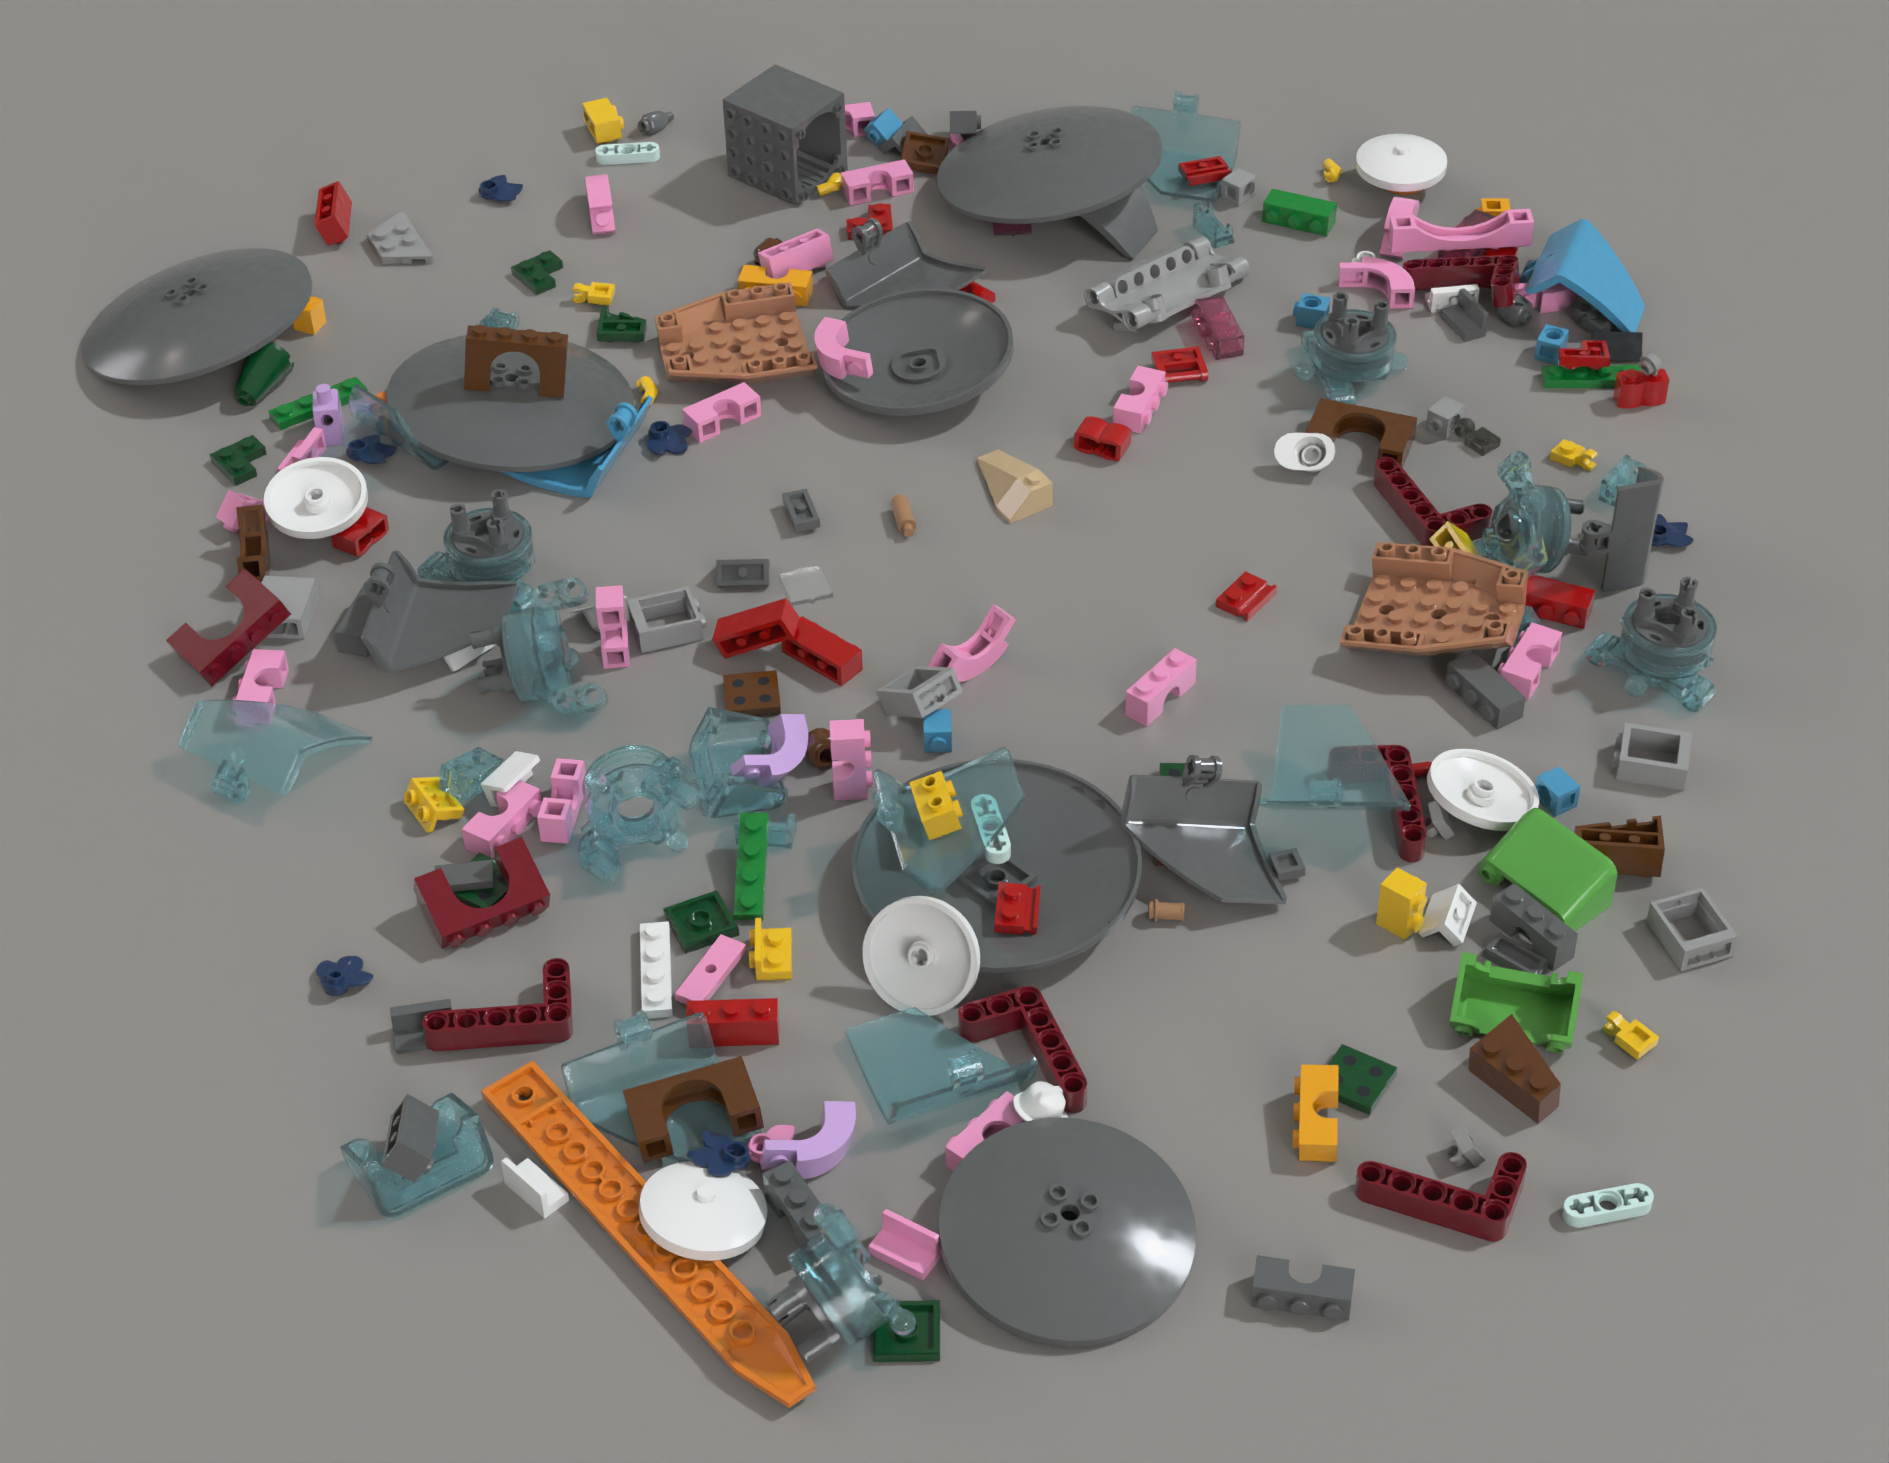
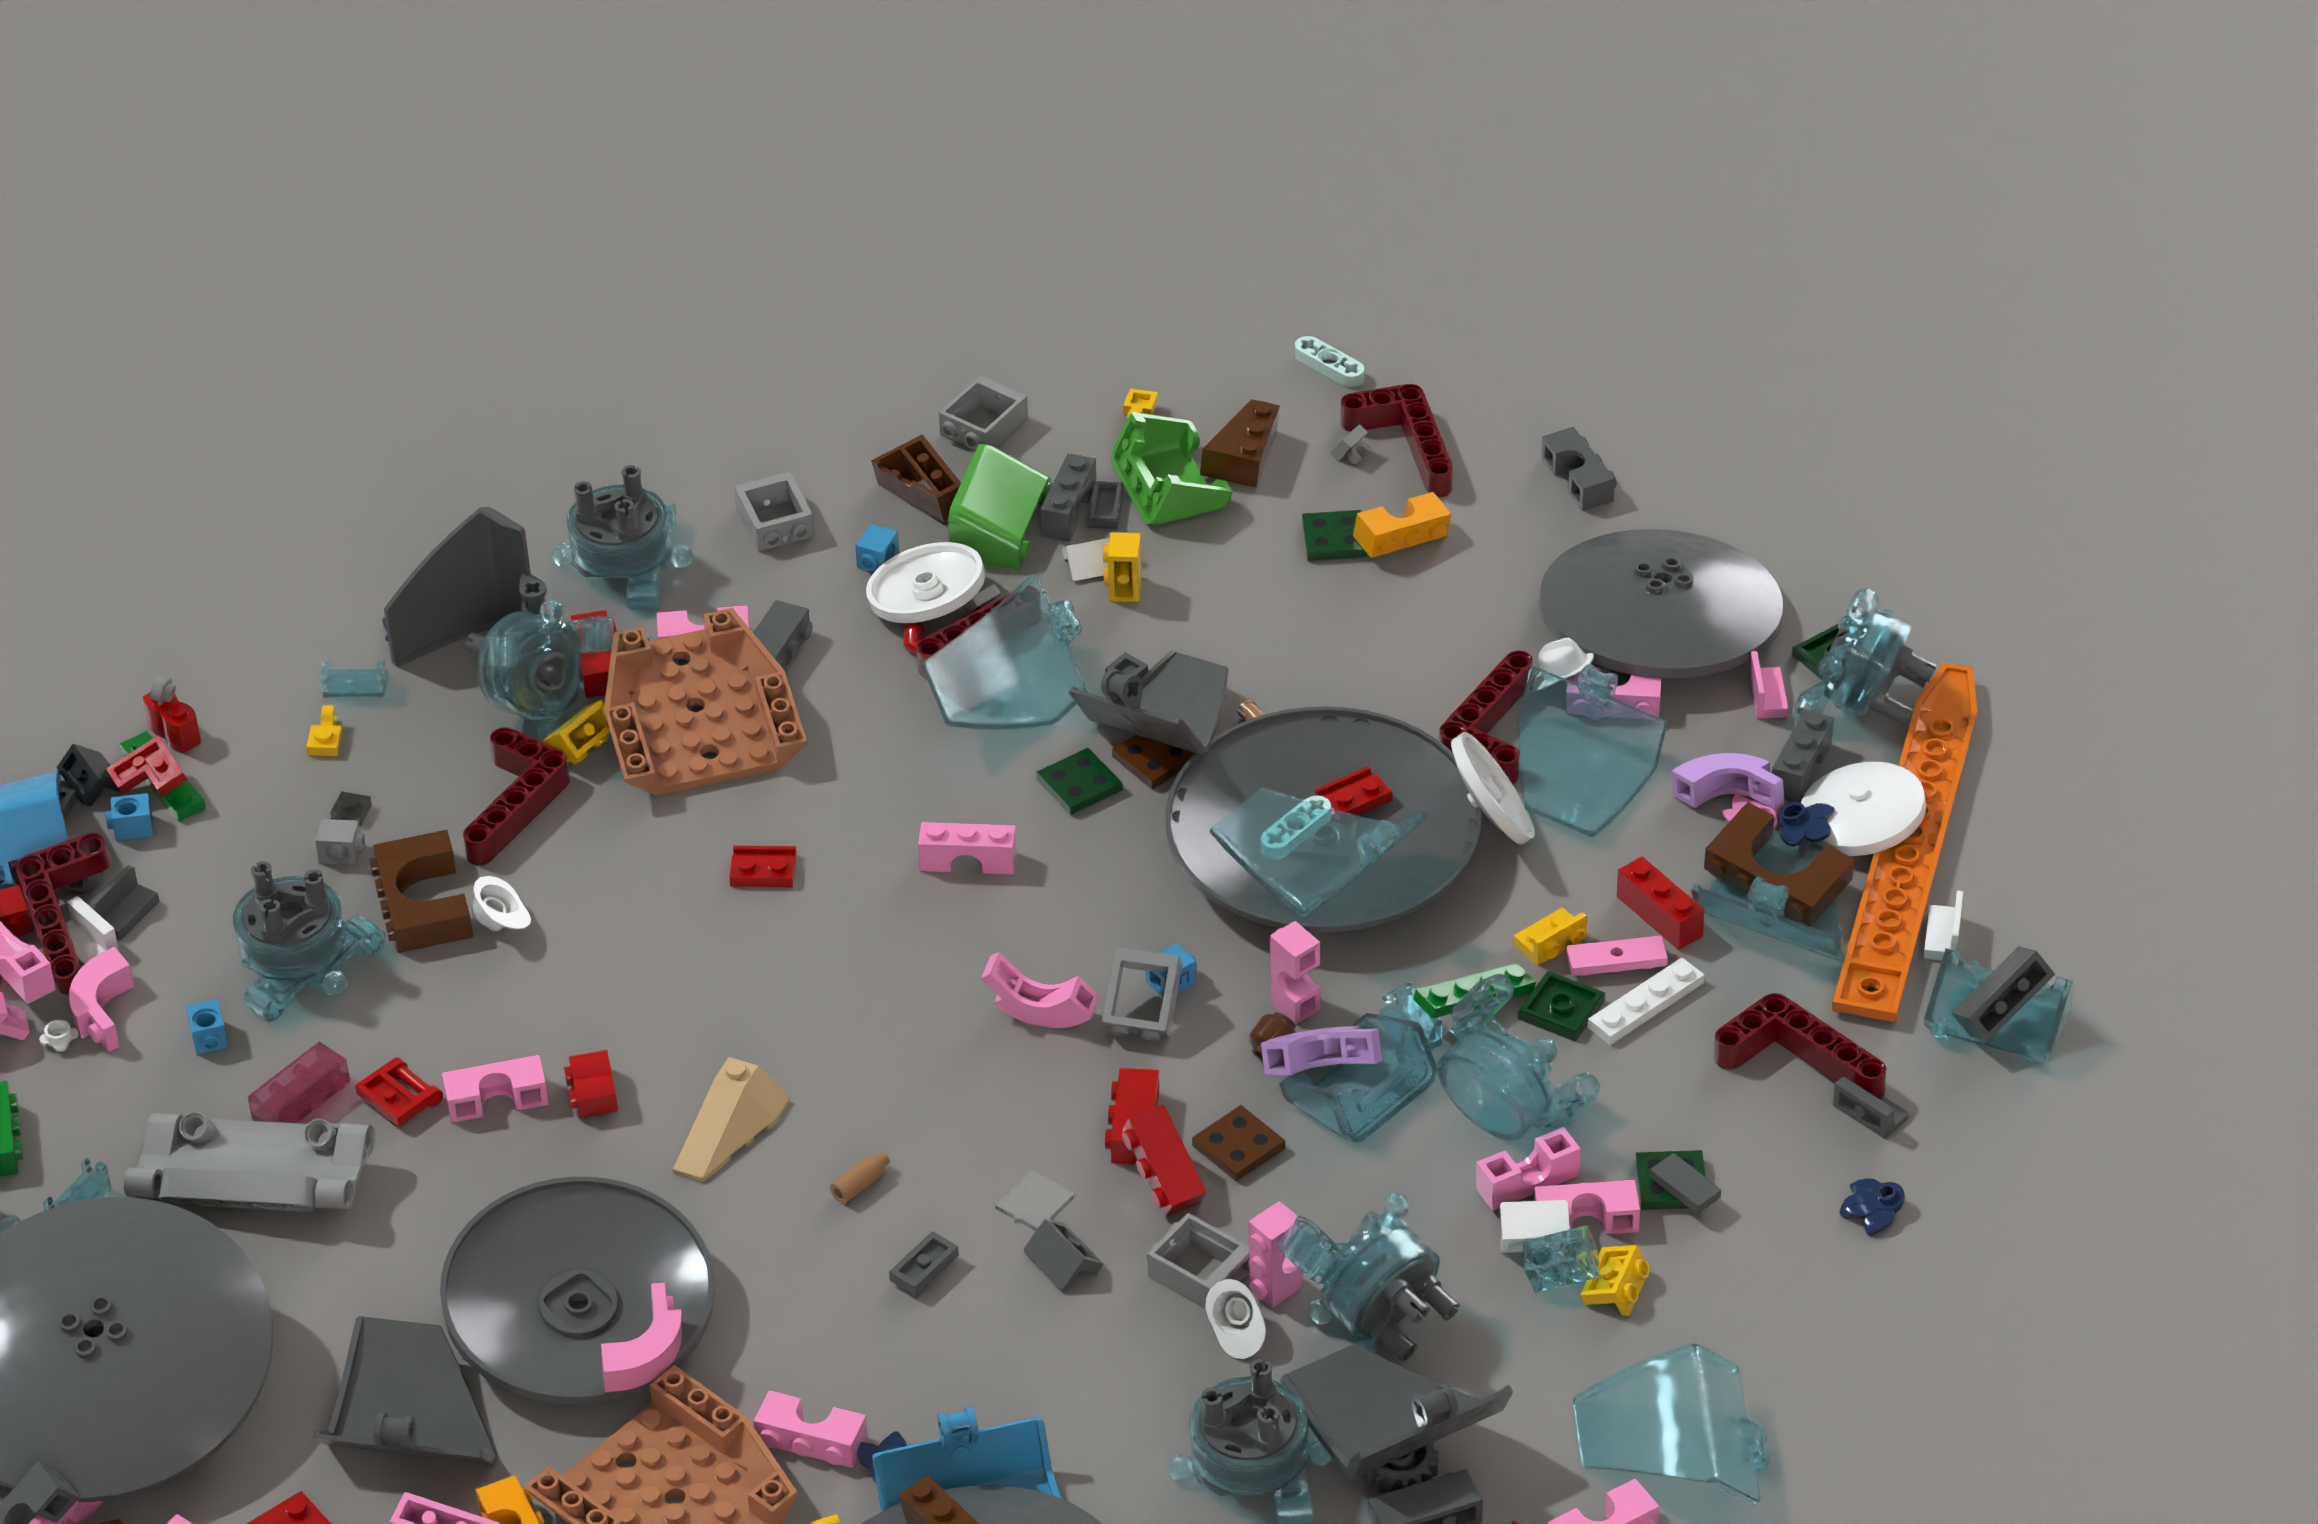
camera: 125 degrees left, 0 degrees up
(456, 922) = (1661, 1126): dark red arch -> none
(935, 805) = (1315, 856): yellow brick -> none

